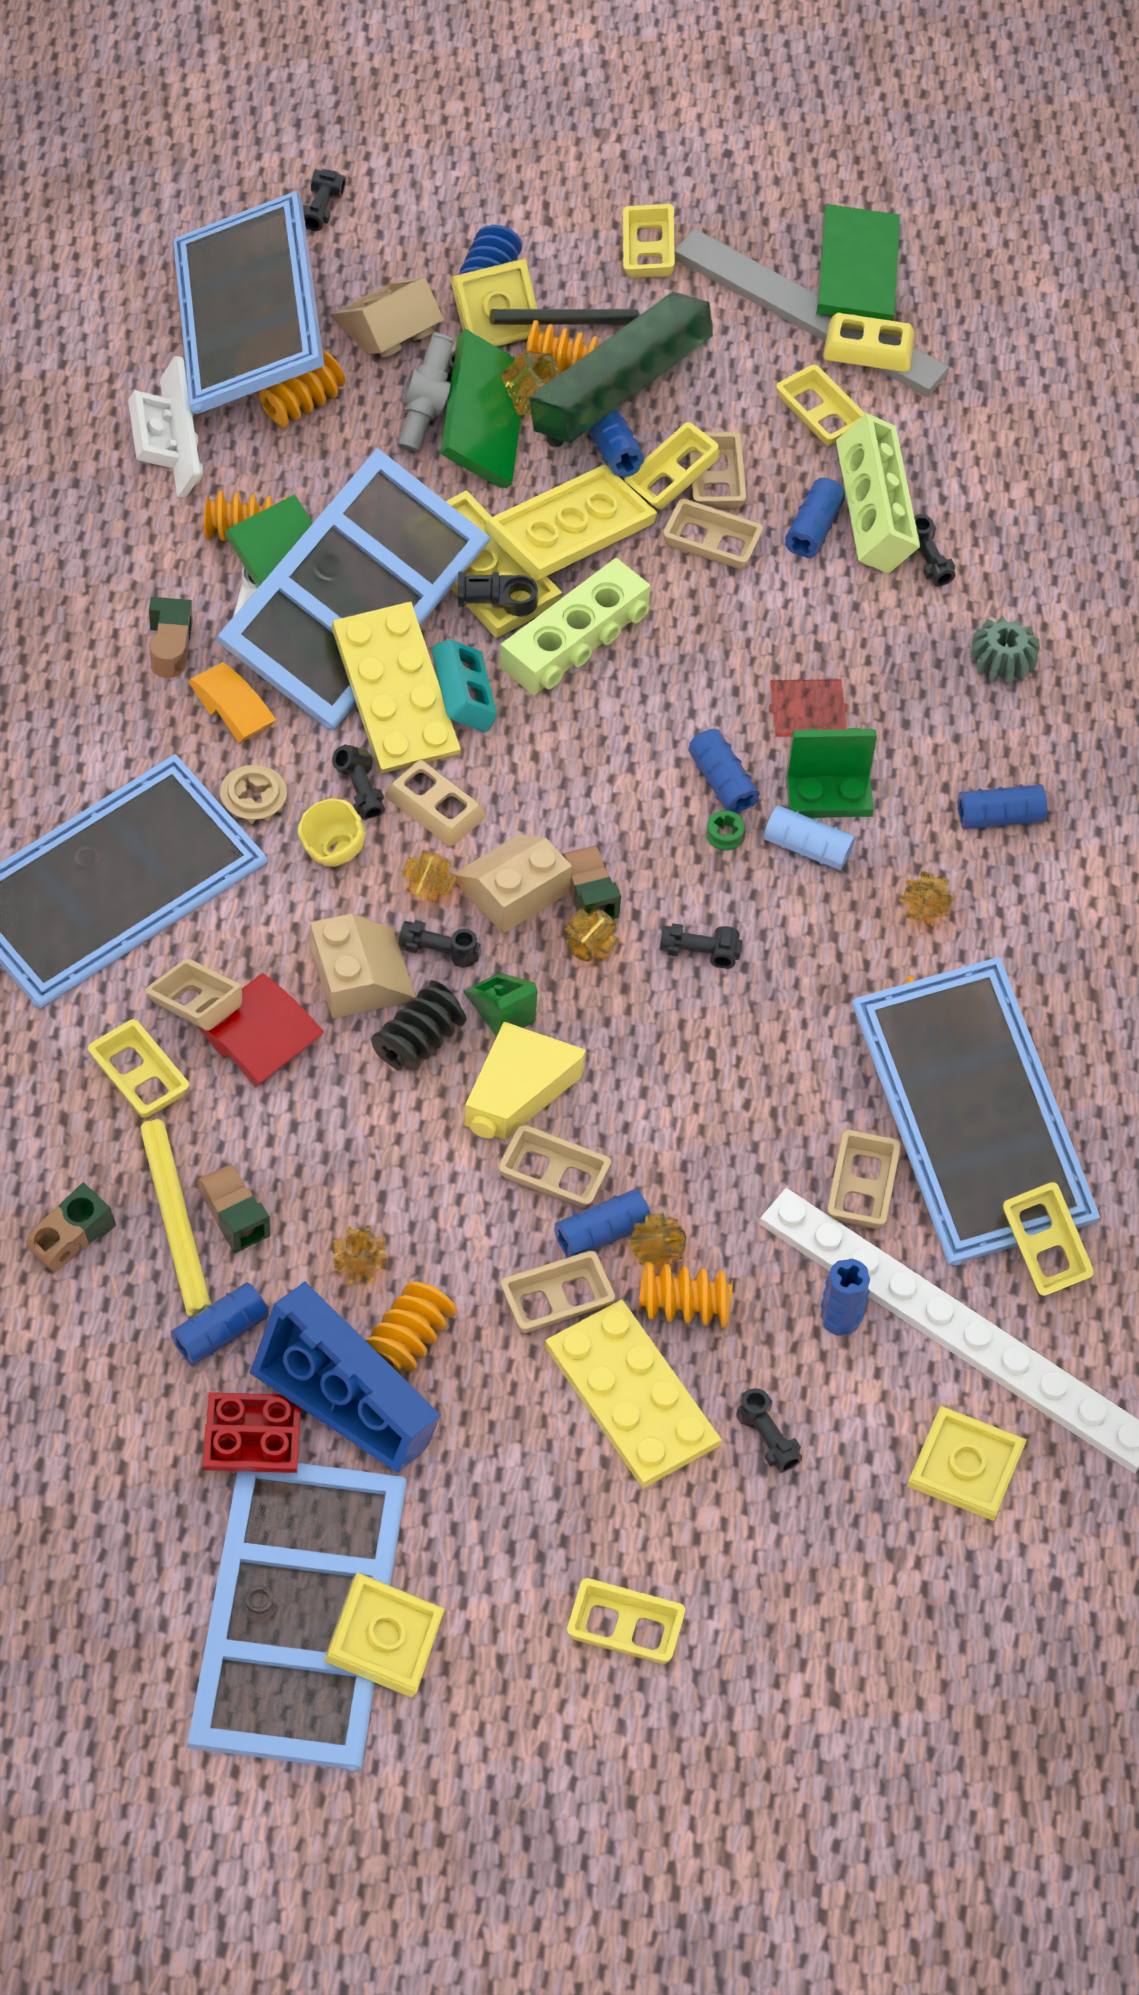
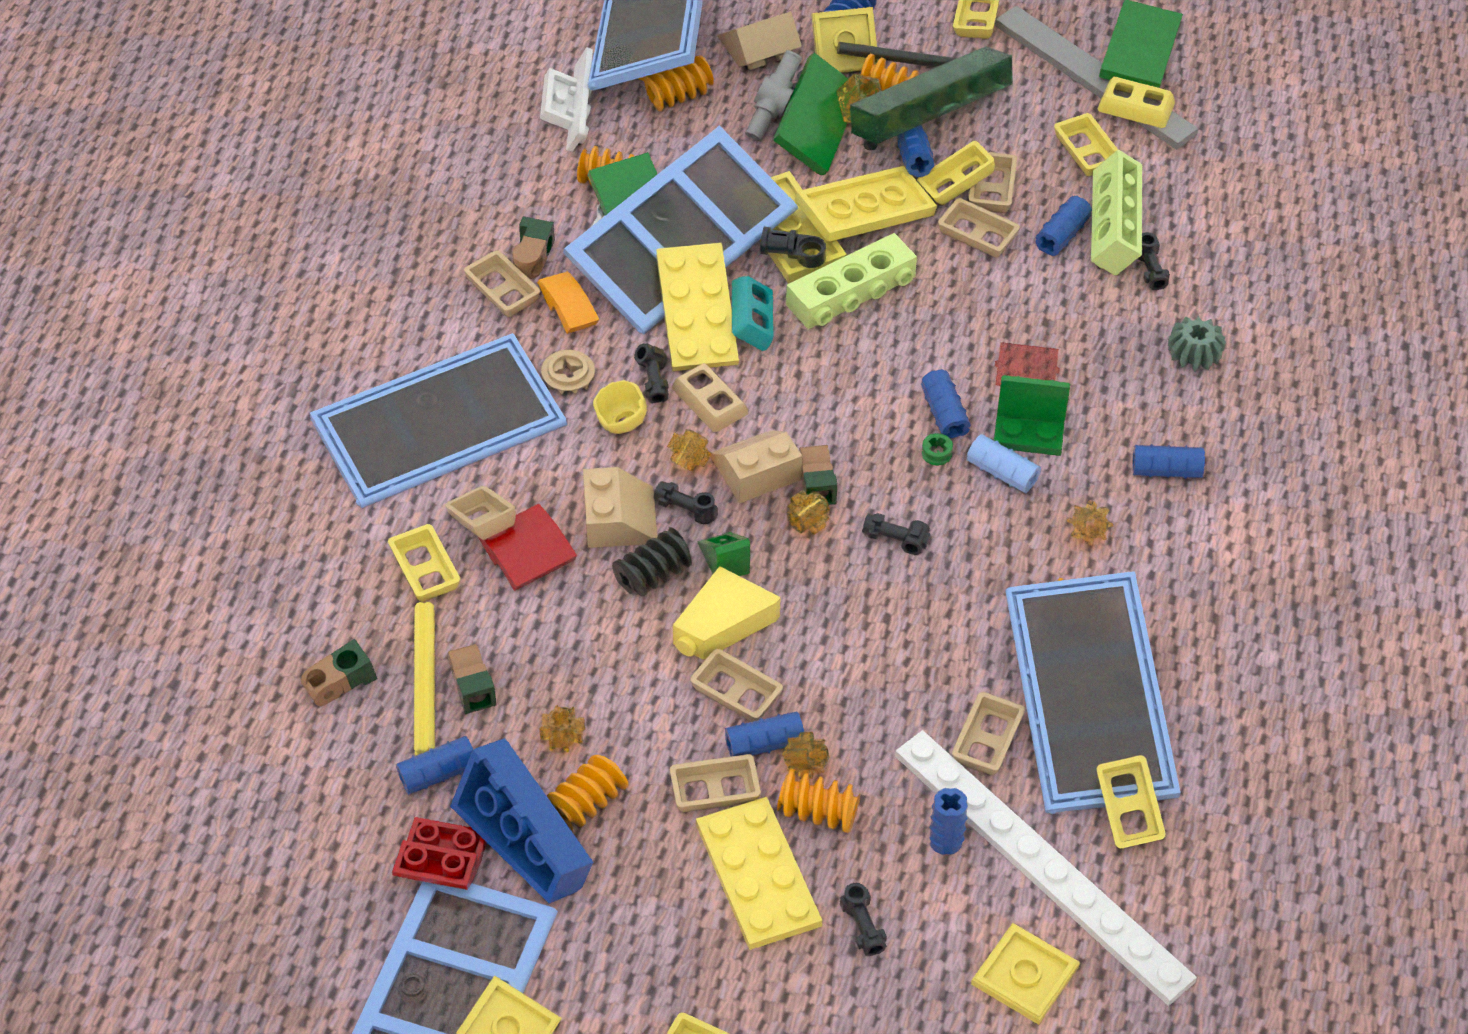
camera: 15 degrees right, 5 degrees down
(155, 682) = (513, 281): none -> tan piece

